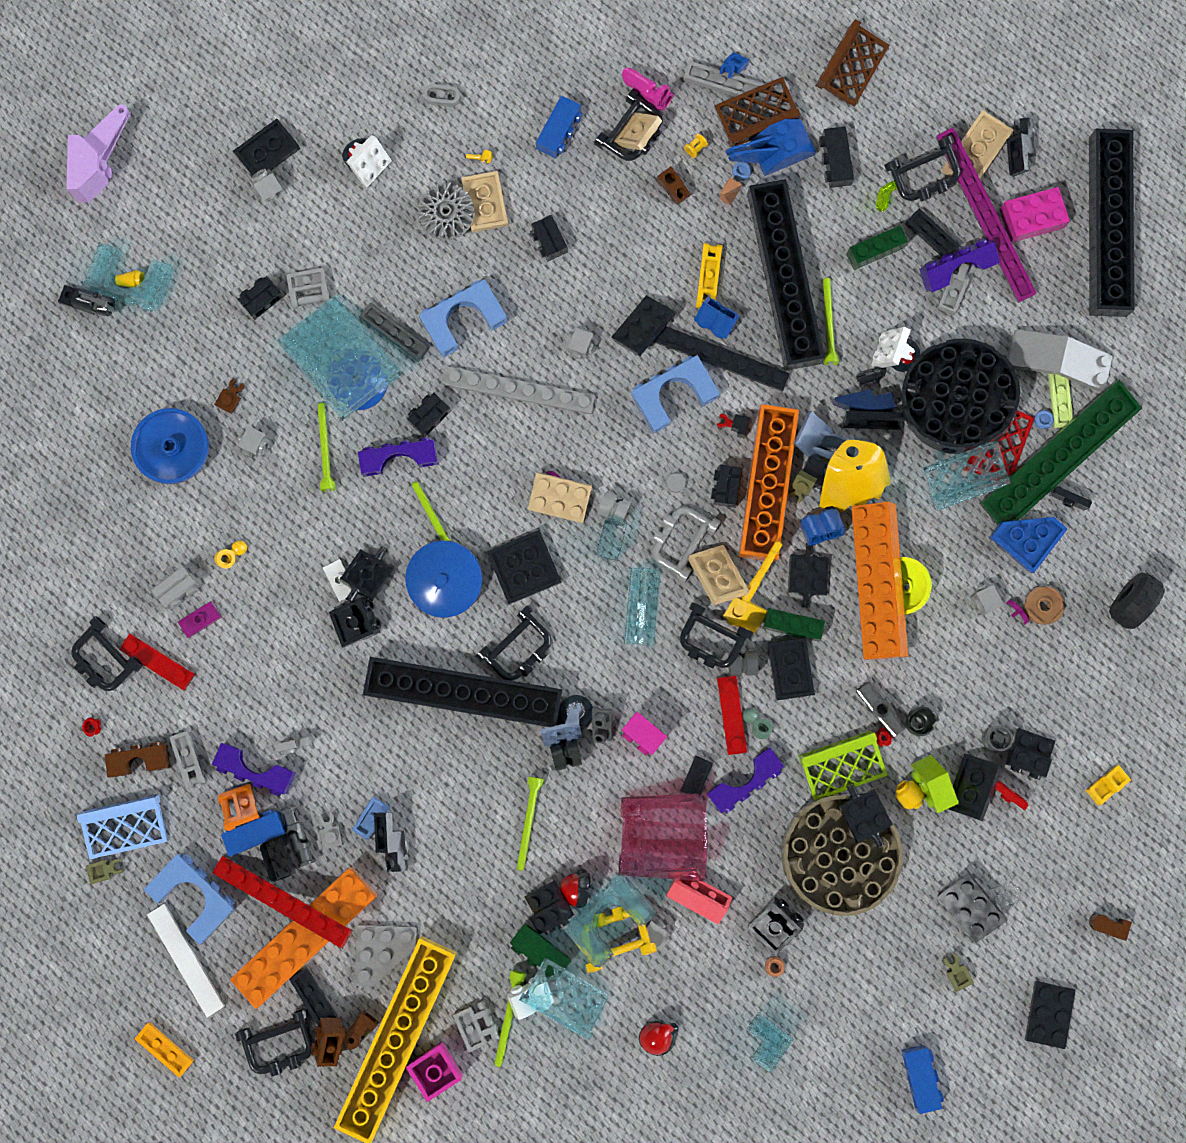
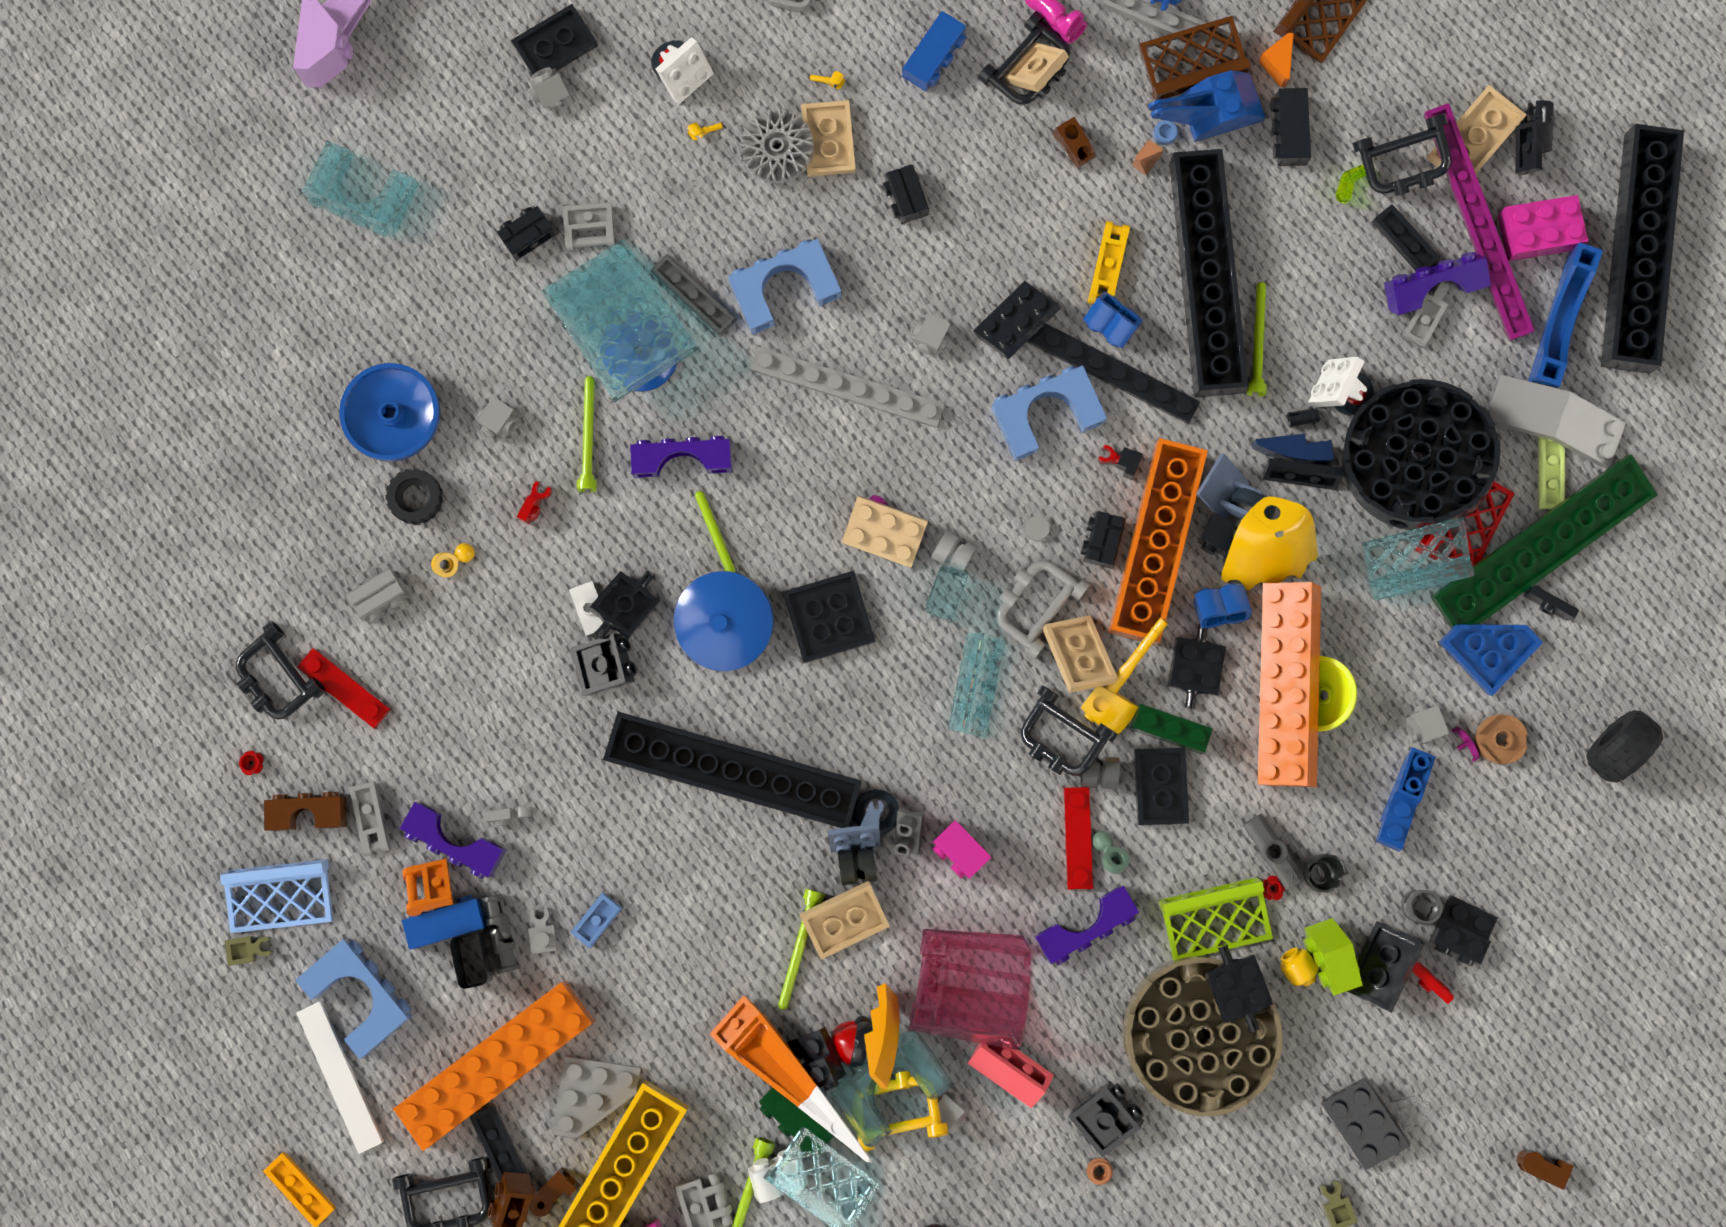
camera: 10 degrees right, 0 degrees up
(86, 300) = (303, 214): black plate -> none
(130, 279) = (362, 192): yellow cone -> none
(188, 496) = (401, 483): none -> black tyre
(199, 619) = (404, 639): magenta plate -> none
(228, 398) = (471, 359): reddish brown plate -> none
(282, 902) = (472, 1016): red plate -> none
(286, 510) = (530, 509): none -> red plate
(381, 205) = (696, 130): none -> yellow hand
(390, 842) = (618, 954): black plate -> none
(428, 414) = (726, 406): black brick -> none
(507, 902) = (759, 1047): none -> orange plate
(527, 619) = (817, 747): black bar -> none
(560, 797) = (844, 920): none -> tan plate
(599, 885) = (883, 1040): none -> light orange slope
(696, 776) = (1024, 912): black plate -> none
(700, 140) = (1117, 91): yellow bush -> none
(802, 485) = (1201, 549): olive plate -> none
(821, 107) = (1277, 60): none -> orange slope
(877, 247) = (1331, 250): dark green brick -> none
(975, 658) = (1404, 799): none -> blue slope
(1043, 419) = (1526, 496): medium blue tile -> none
(1062, 255) = (1554, 345): none -> blue arch
(1108, 784) = (1560, 983): yellow slope -> none

